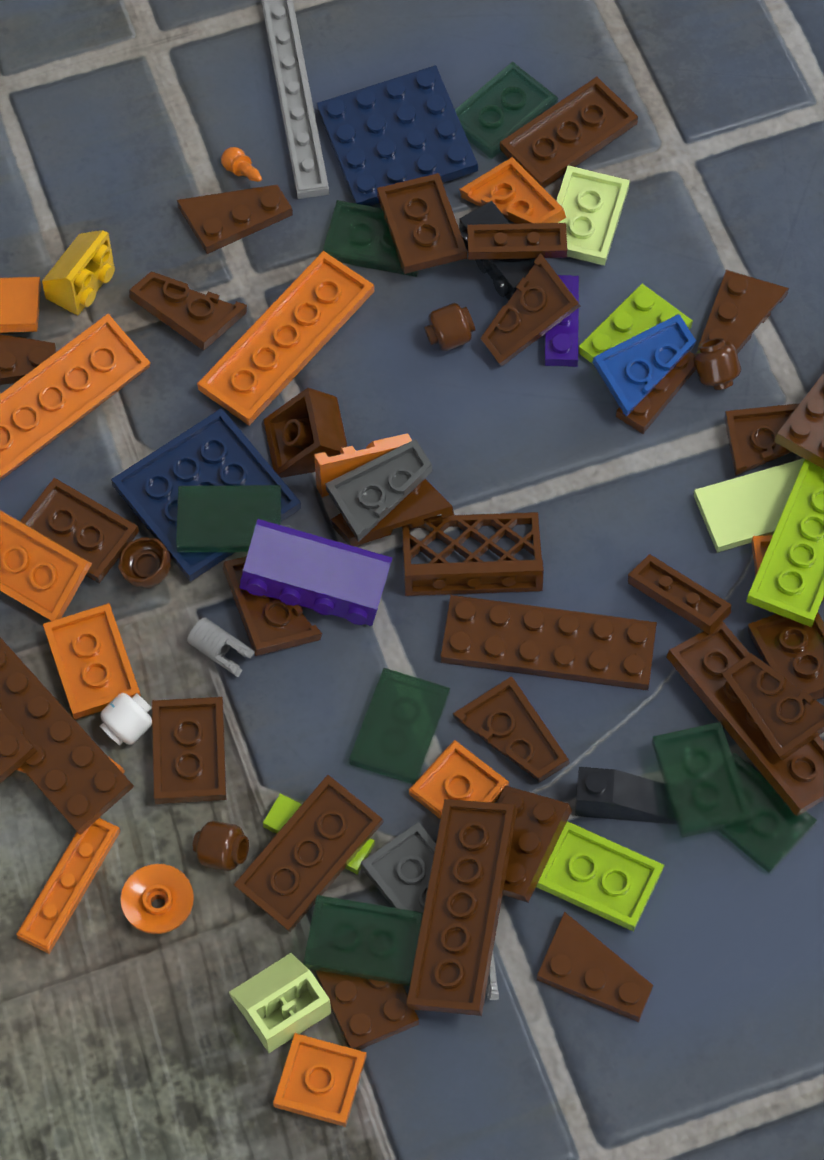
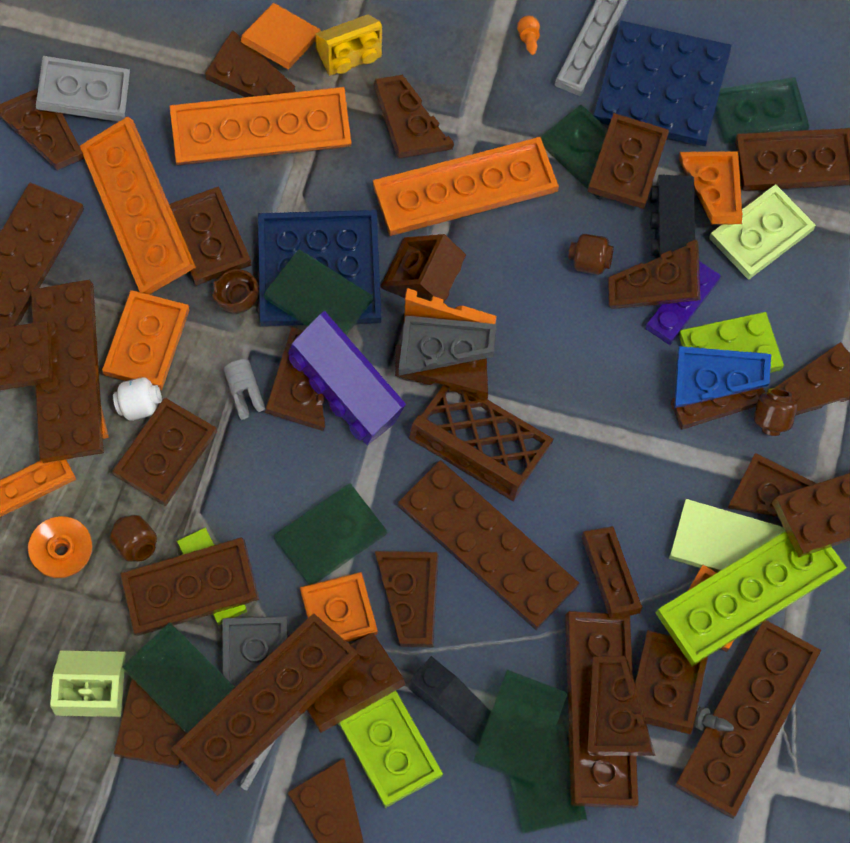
camera: 30 degrees right, 5 degrees up
(234, 214) = (497, 69): reddish brown wing -> none
(320, 1079) = (75, 760): orange plate -> none
(517, 241) = (687, 219): reddish brown plate -> none

